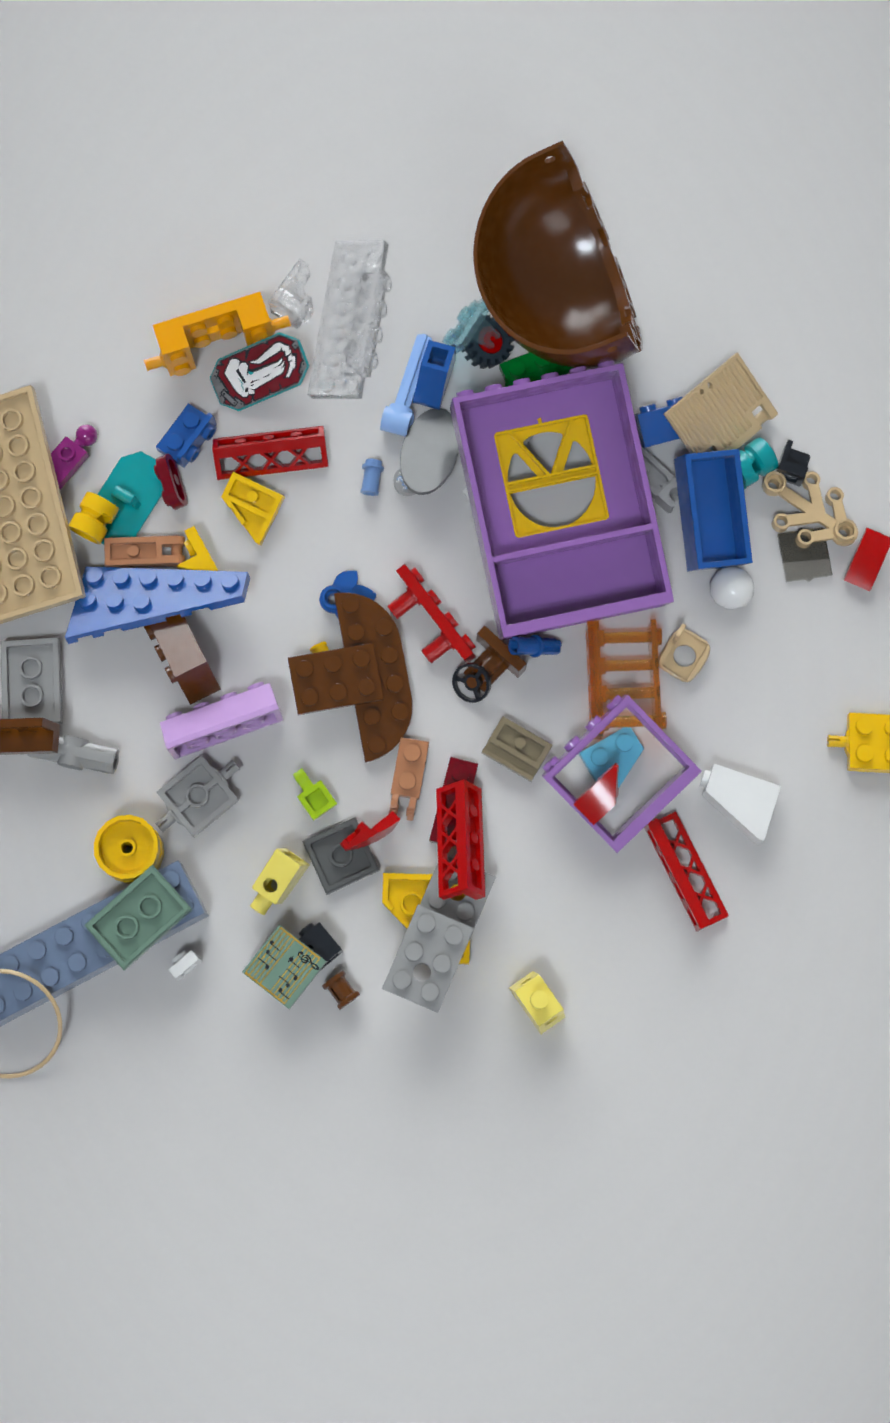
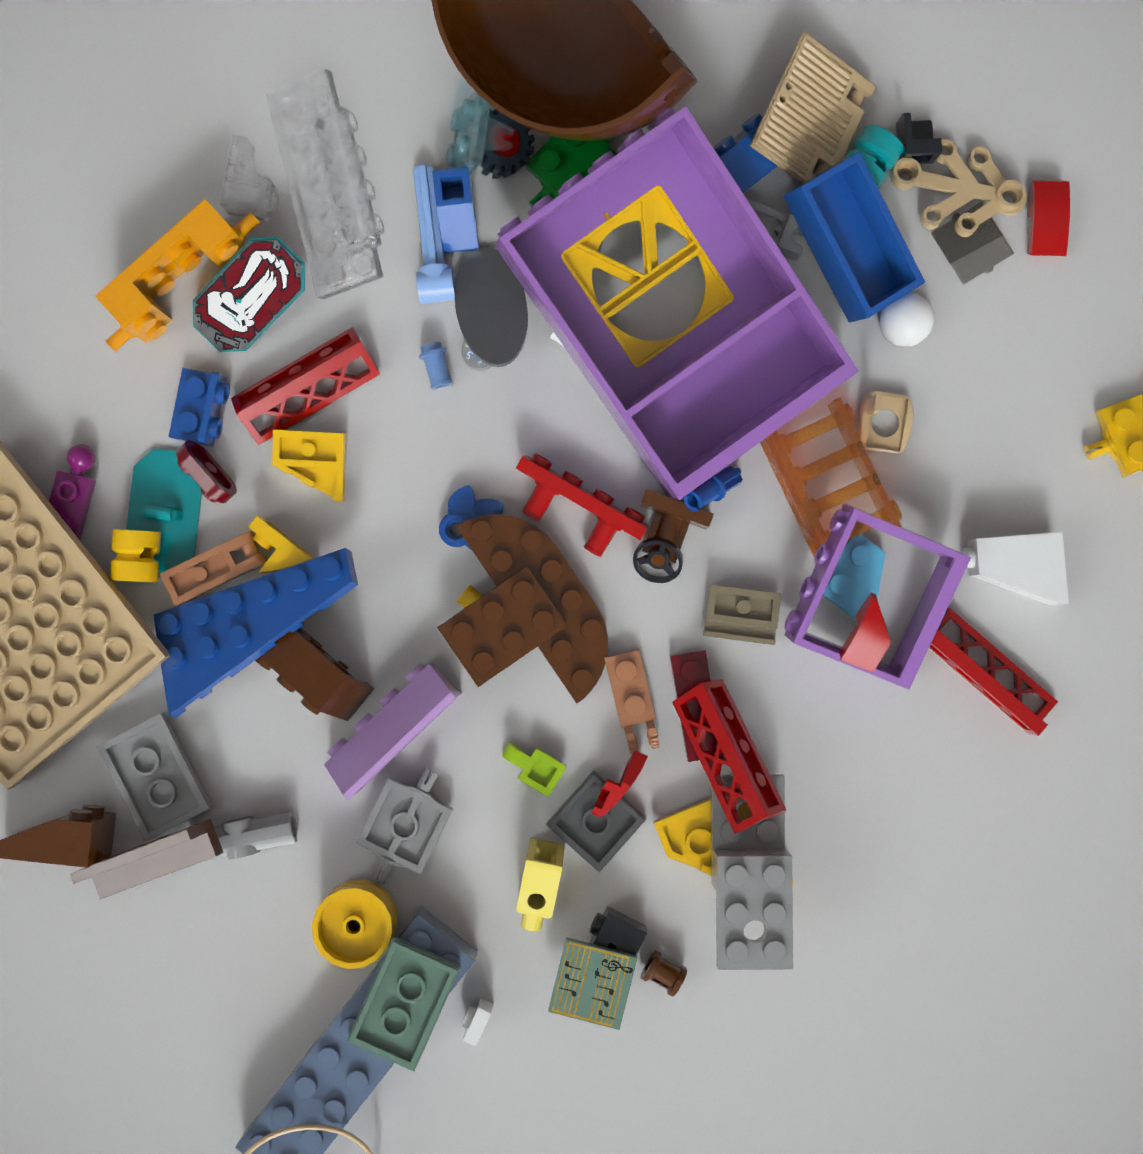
camera: 20 degrees left, 10 degrees up
(538, 1001) = (887, 893): light yellow torso -> none

